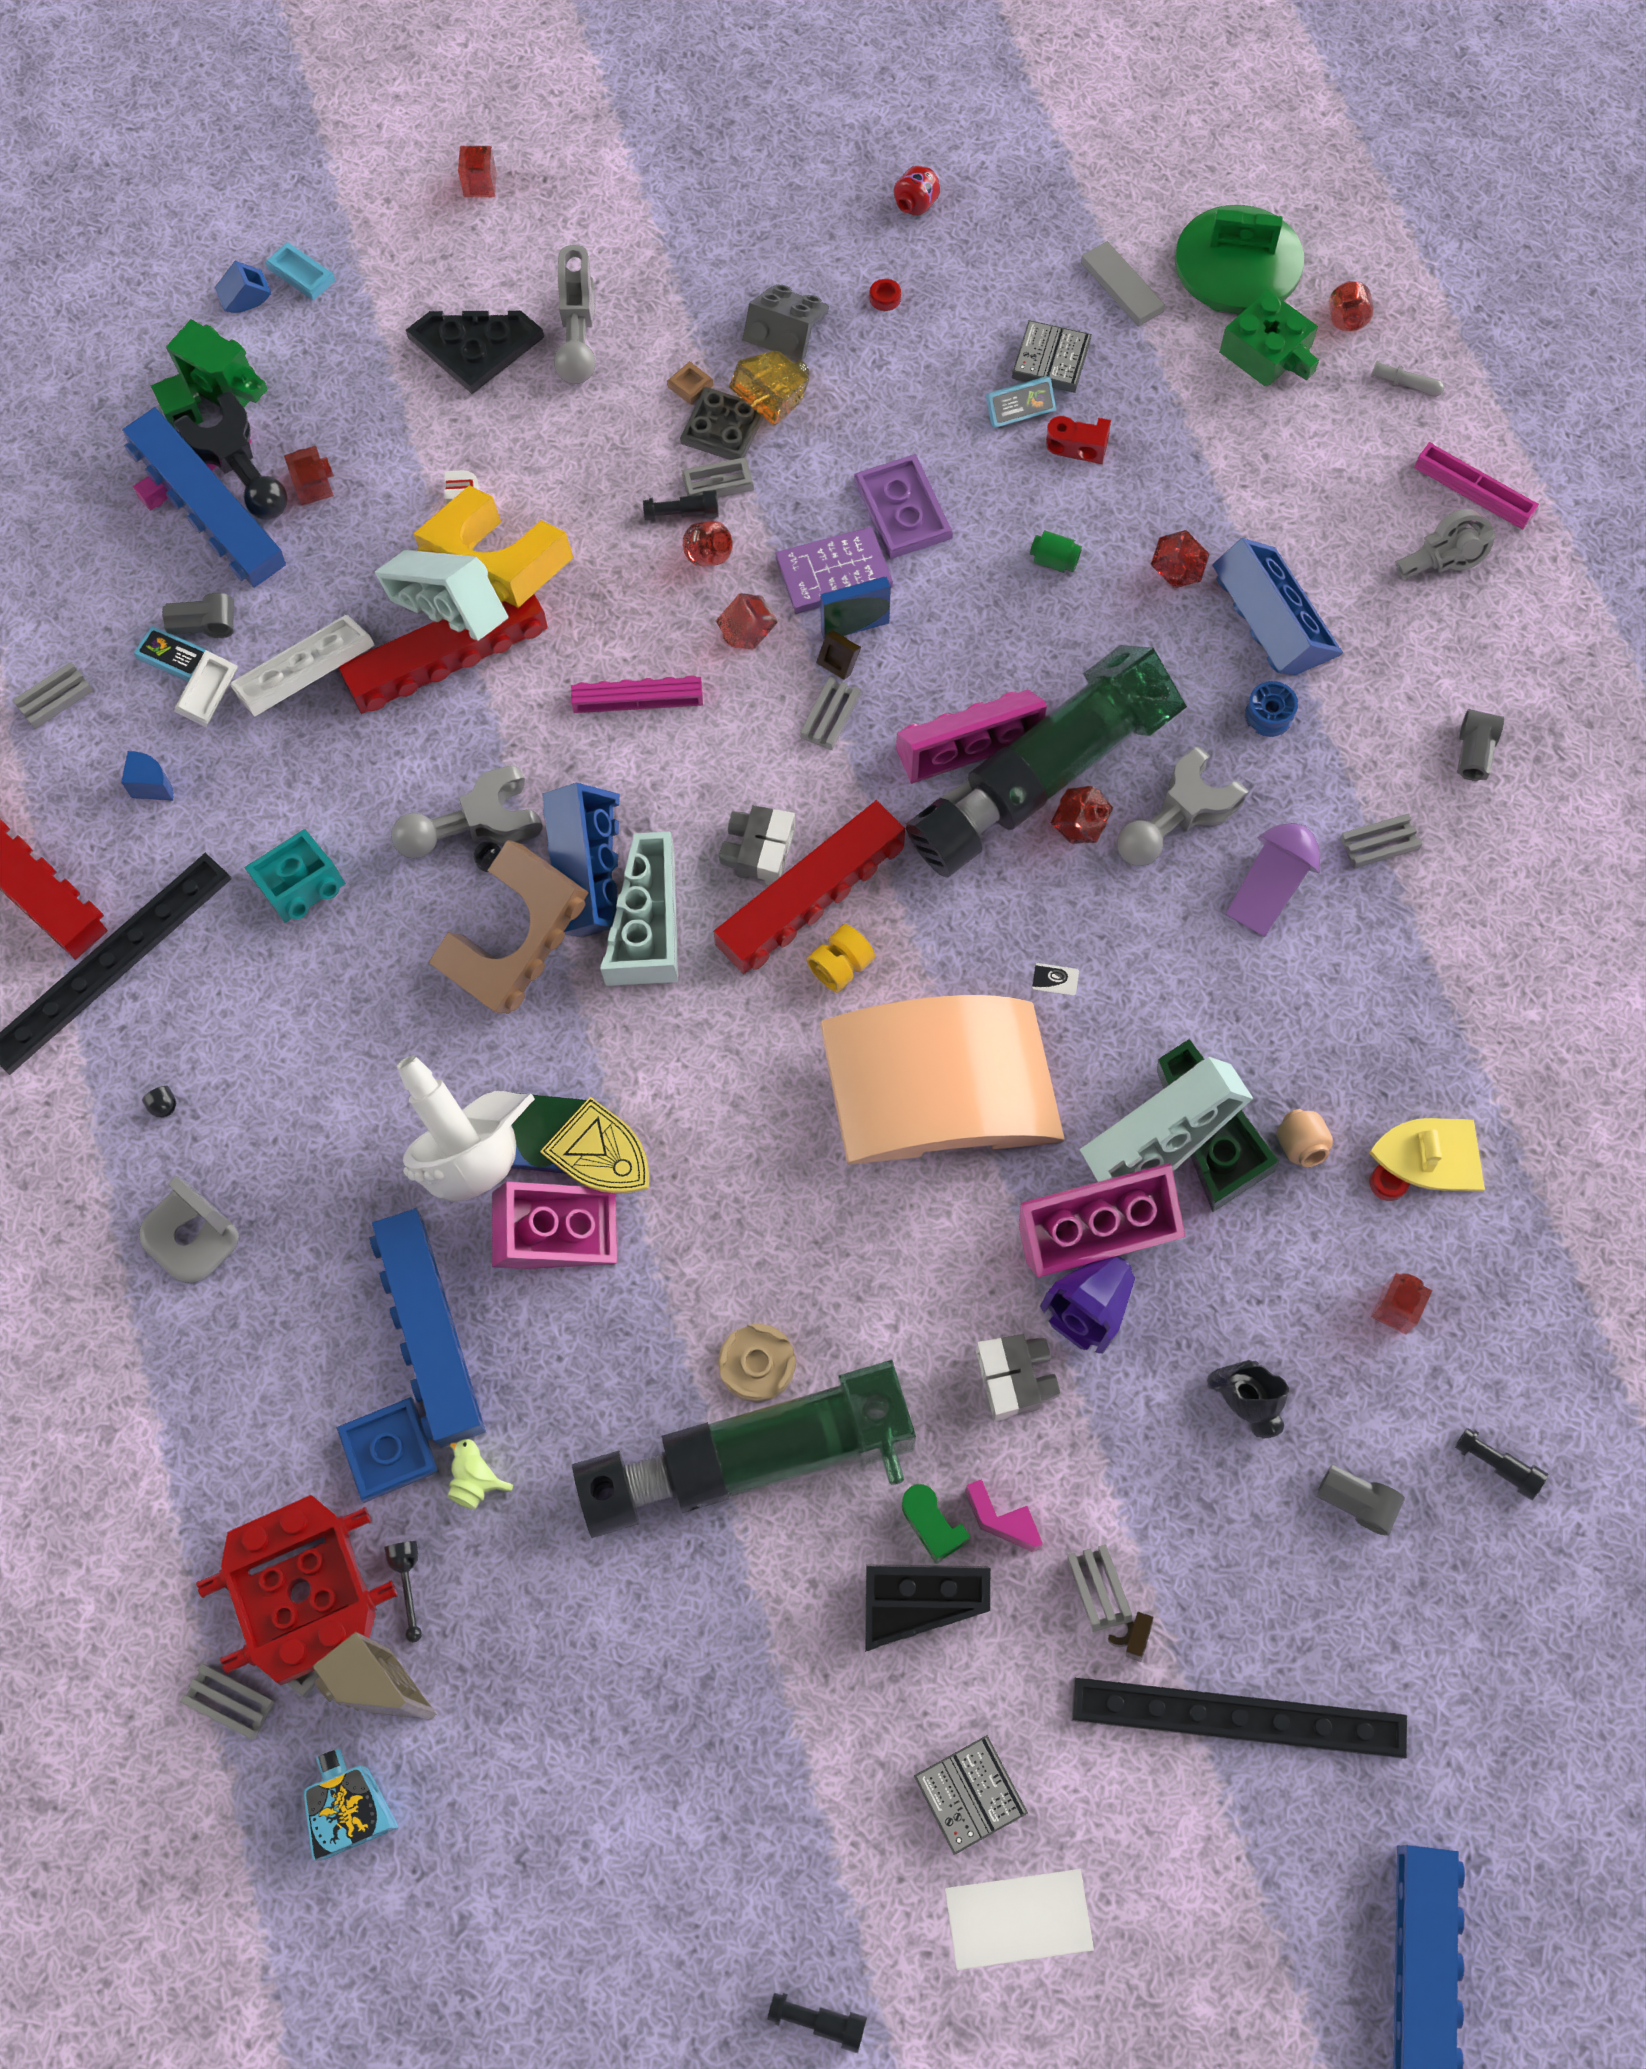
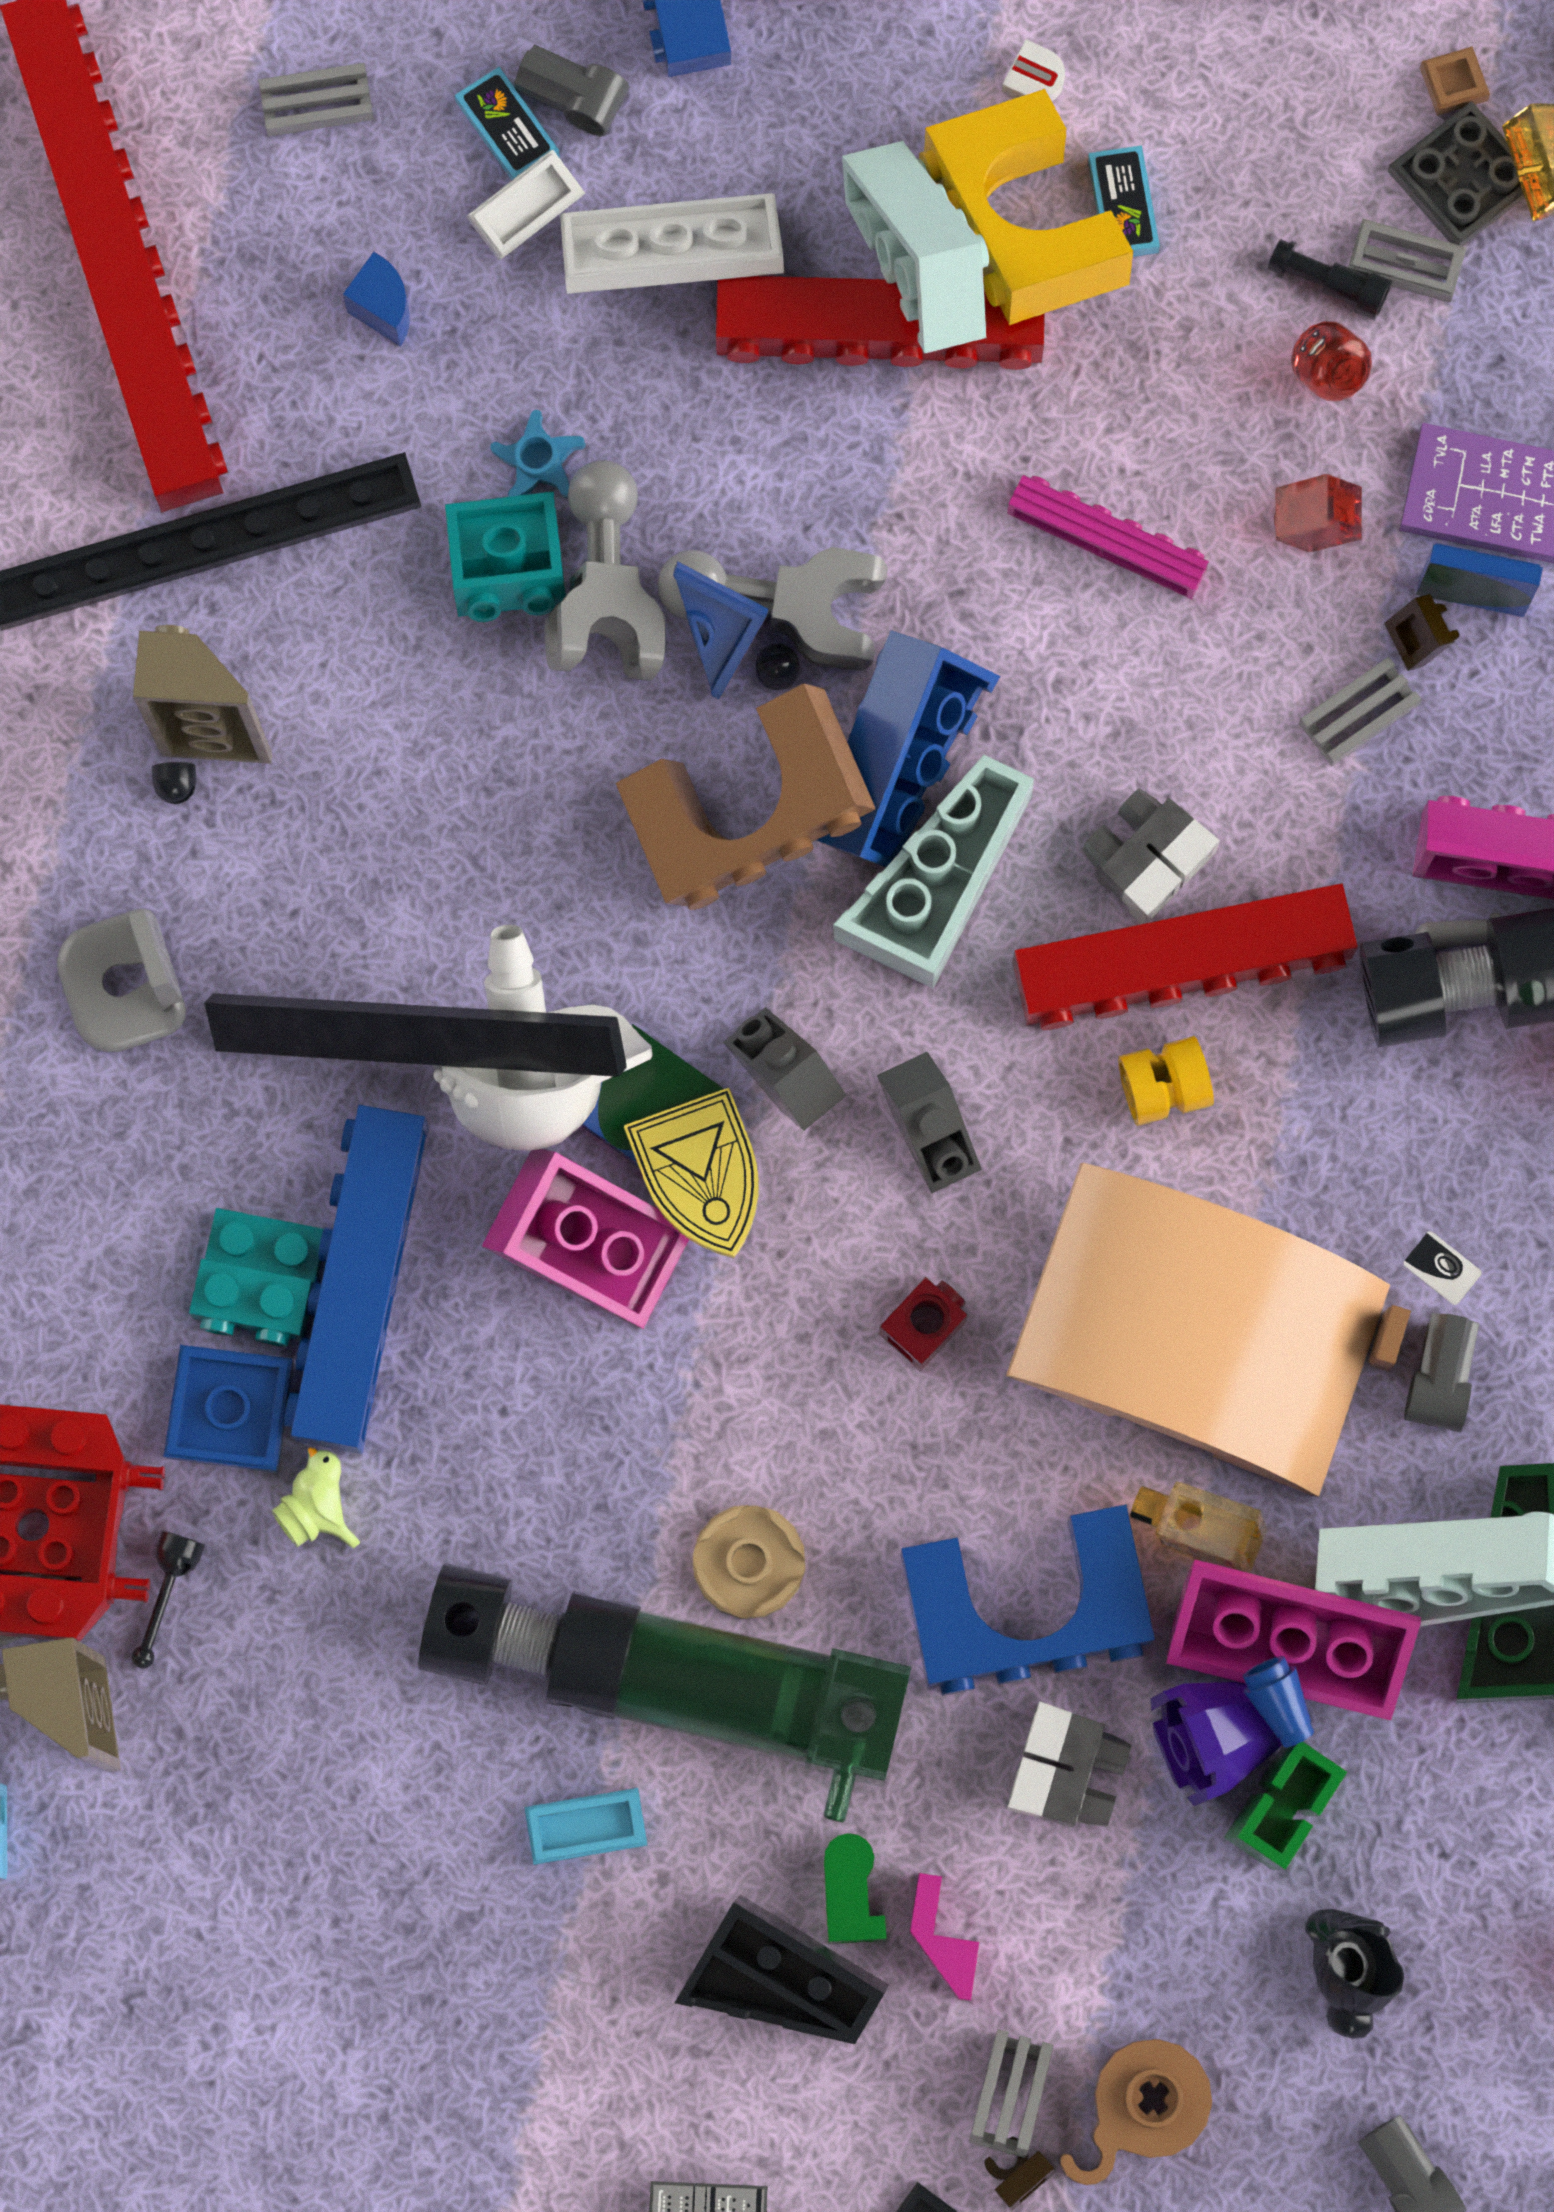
camera: 30 degrees right, 10 degrees up
(147, 1038) = (194, 700): none -> dark tan slope
(286, 816) = (538, 457): none -> dark azure animal
(363, 865) = (602, 592): none -> light grey piece
(363, 1362) = (256, 1277): none -> teal plate
(384, 1157) = (417, 1034): none -> black tile
(443, 845) = (720, 624): none -> blue tile
(538, 509) = (1123, 187): none -> tile
(618, 1068) = (785, 1068): none -> dark grey slope
(719, 1052) = (929, 1121): none -> dark grey slope
(748, 1578) = (586, 1826): none -> medium azure tile
(777, 1181) = (916, 1346): none -> dark red brick
(914, 1338) = (962, 1647): none -> blue arch
(1021, 1179) = (1225, 1537): none -> clear yellow torso
(1051, 1029) = (1389, 1338): none -> medium nougat tile
(1095, 1041) = (1440, 1387): none -> dark grey piece
(1117, 1258) = (1279, 1699): none -> blue cone
(1155, 1303) = (1294, 1782): none -> green piece
(1180, 1567) = (1121, 2121): none -> medium nougat piece

